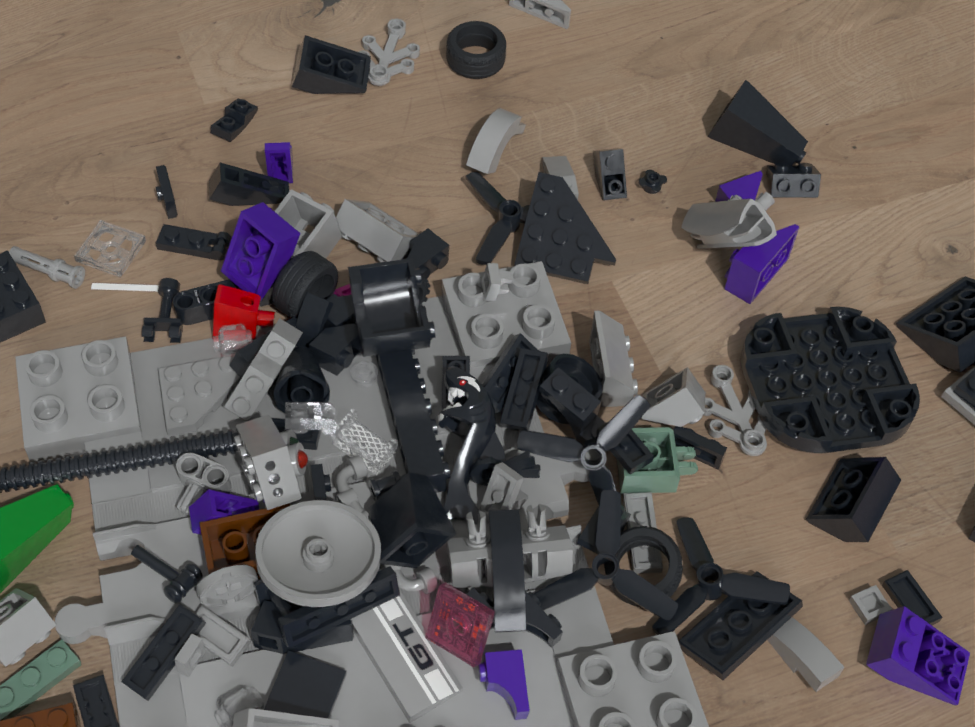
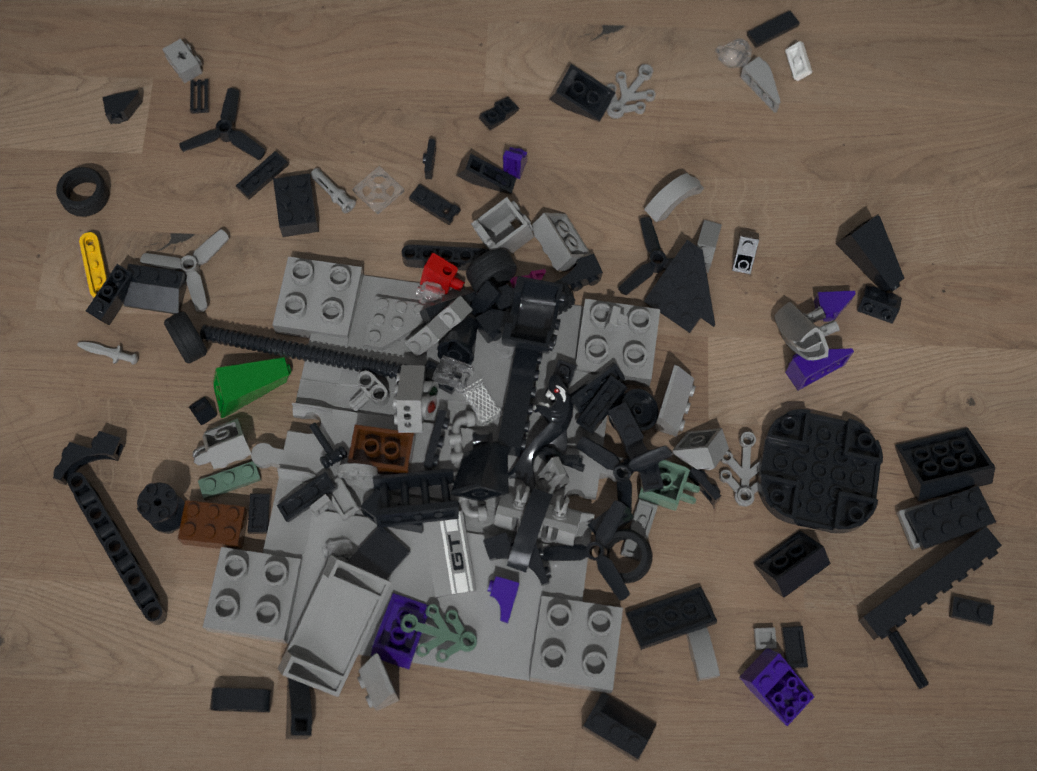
camera: 25 degrees right, 15 degrees up
(130, 287) = (380, 224): white sticker -> none
(167, 289) = (404, 237): black bar -> none
(218, 505) = (373, 417): dark purple arch -> none
(259, 249) = (467, 237): dark purple slope -> none
(318, 553) = (416, 475): light grey dish -> none
(459, 624) = (486, 553): clear pink tile -> none
(476, 34) = (696, 97): black tyre -> none
(652, 181) = (774, 273): black plate -> none
(732, 584) = (677, 590): black piece -> none

